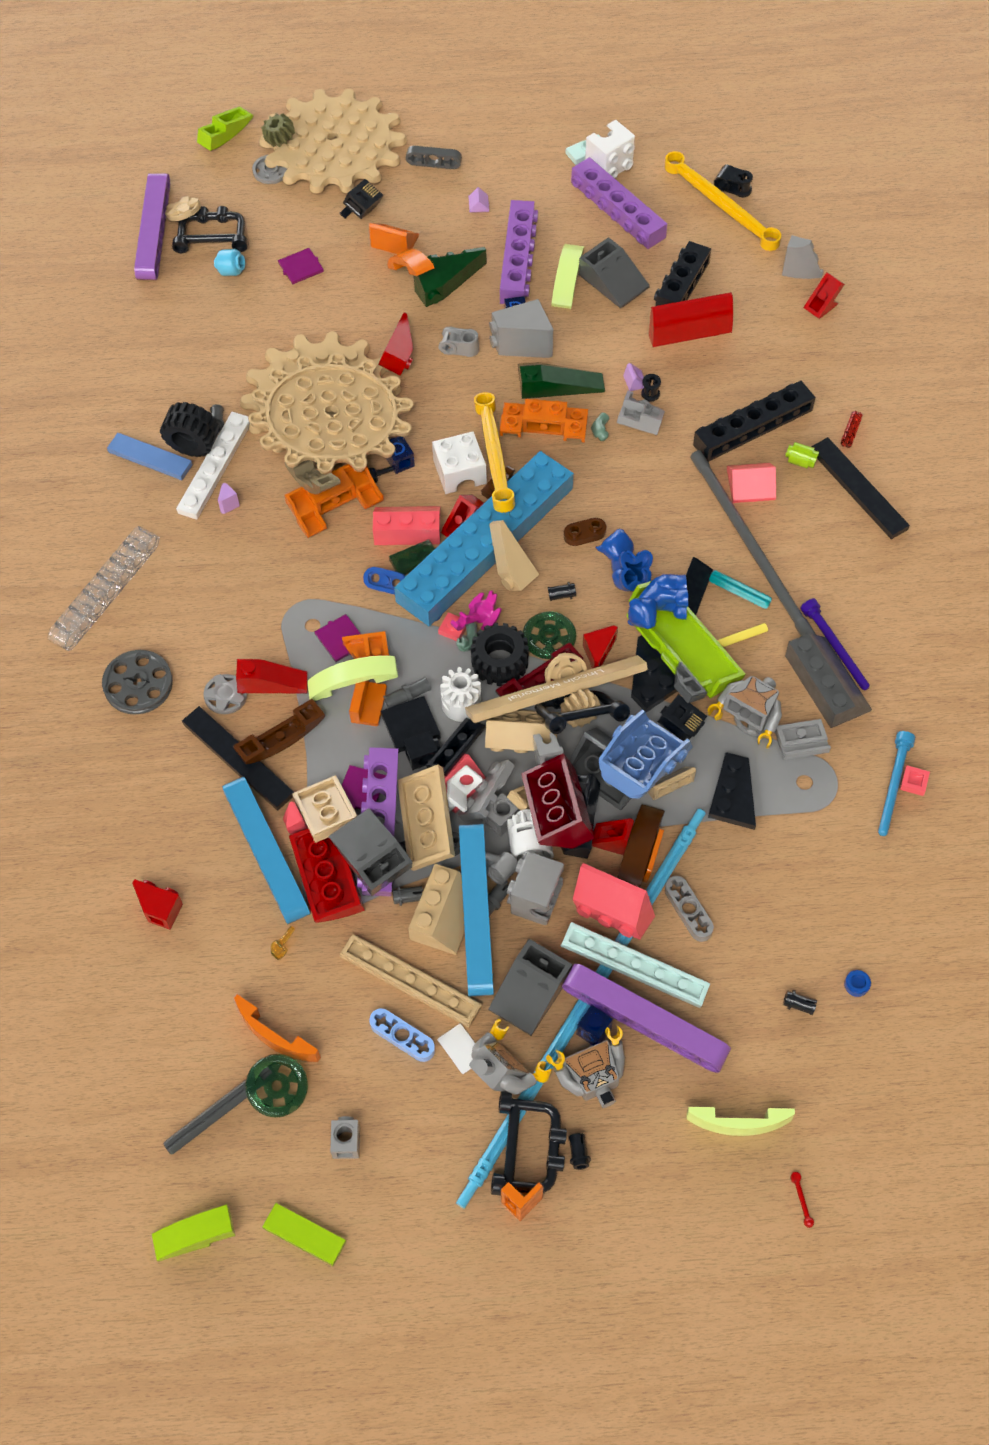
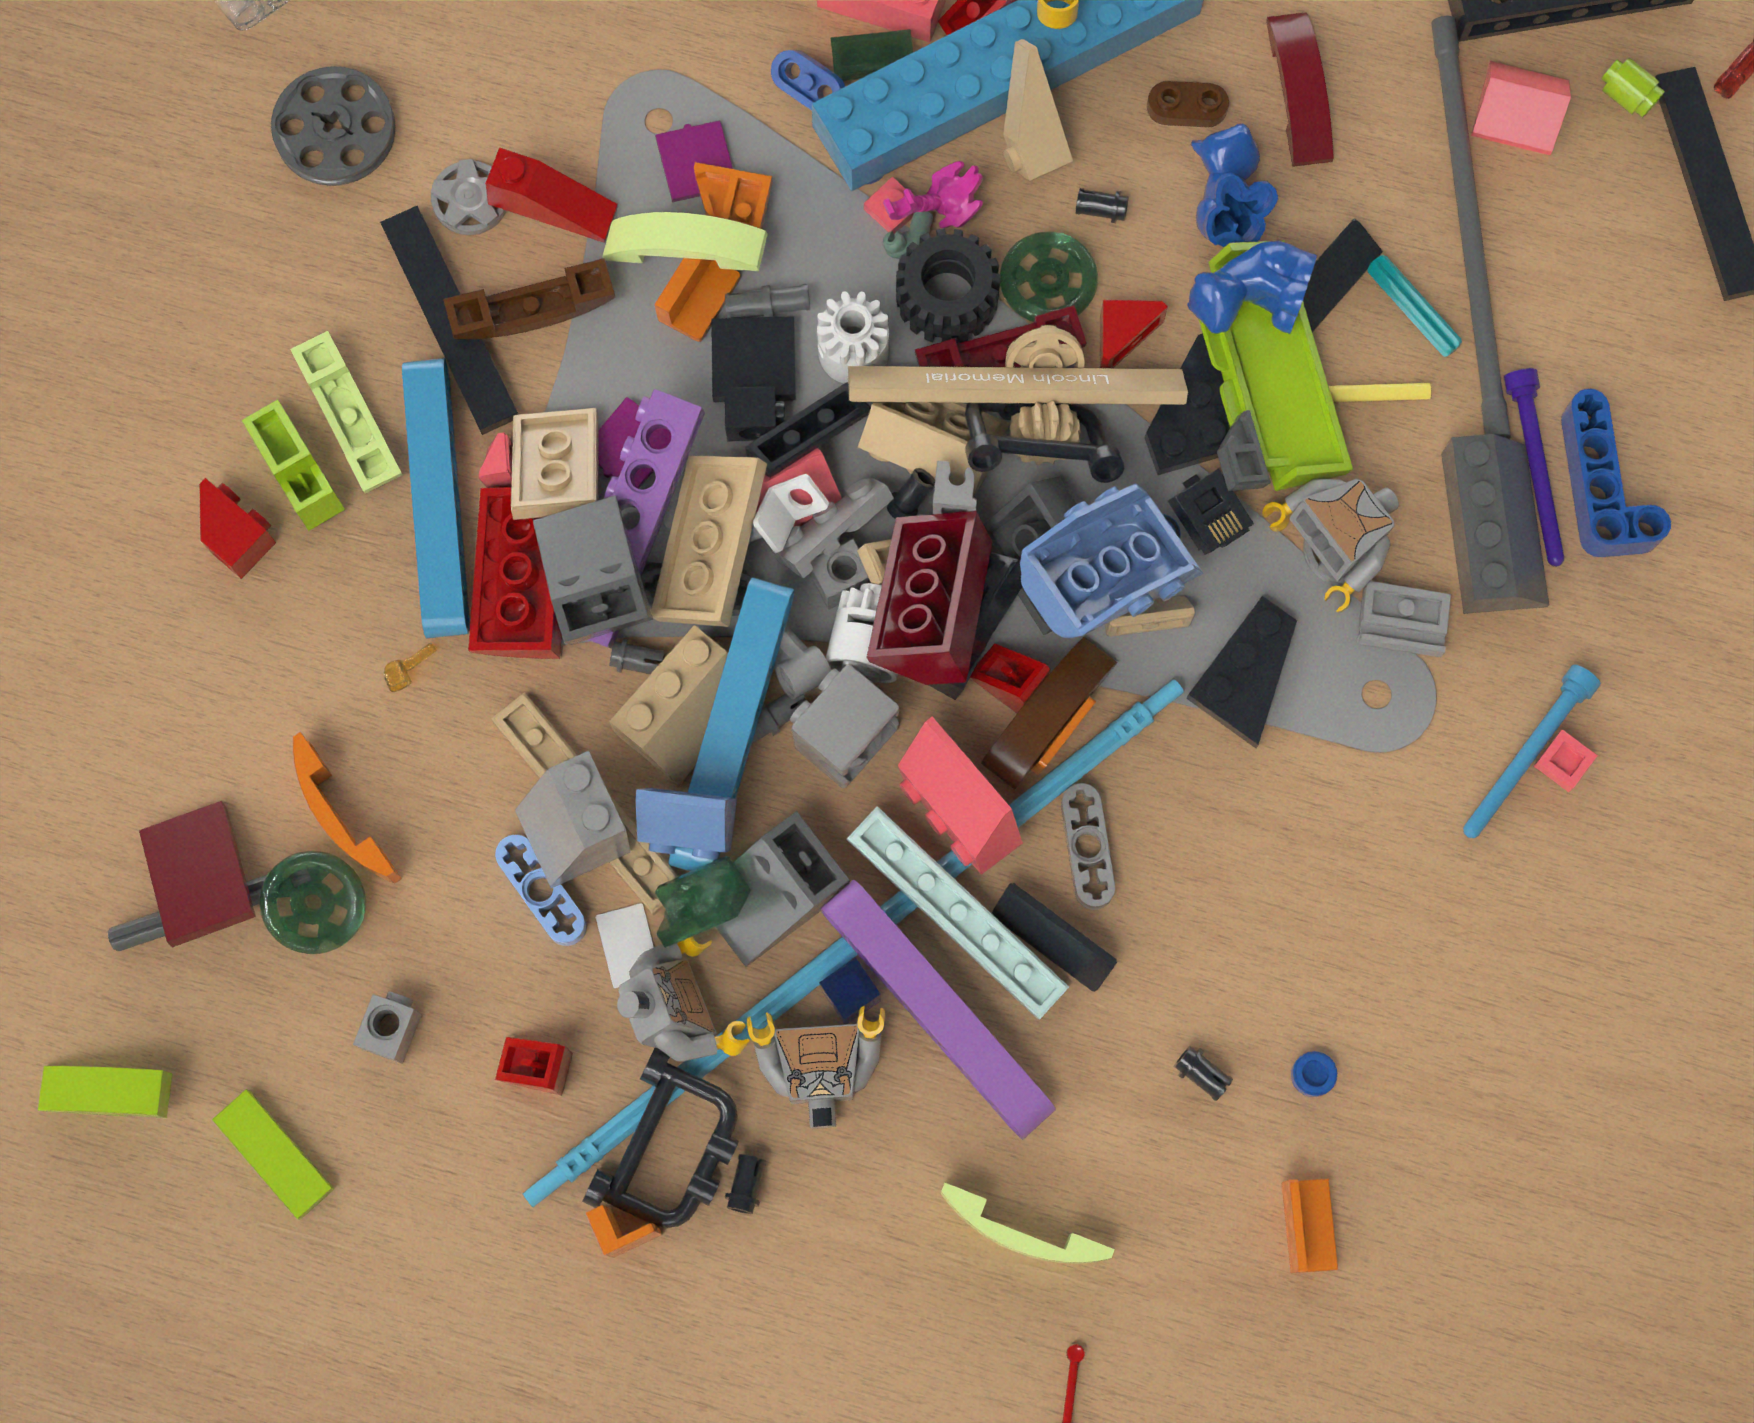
camera: 20 degrees right, 15 degrees up
(179, 859) = (293, 465): none -> lime slope
(198, 822) = (346, 412): none -> yellowish green slope
(204, 1093) = (196, 874): none -> dark red tile
(409, 985) = (572, 821): none -> light grey slope
(435, 1129) = (534, 1065): none -> red slope
(472, 962) = (685, 820): none -> medium blue slope
(494, 1004) = (701, 900): none -> clear green bracket
(522, 762) = (911, 494): none -> black pin
(641, 506) = (1303, 88): none -> dark red slope
(692, 960) = (1054, 937): none -> black slope
(853, 616) = (1606, 475): none -> blue beam
(889, 1062) = (1309, 1225): none -> orange panel

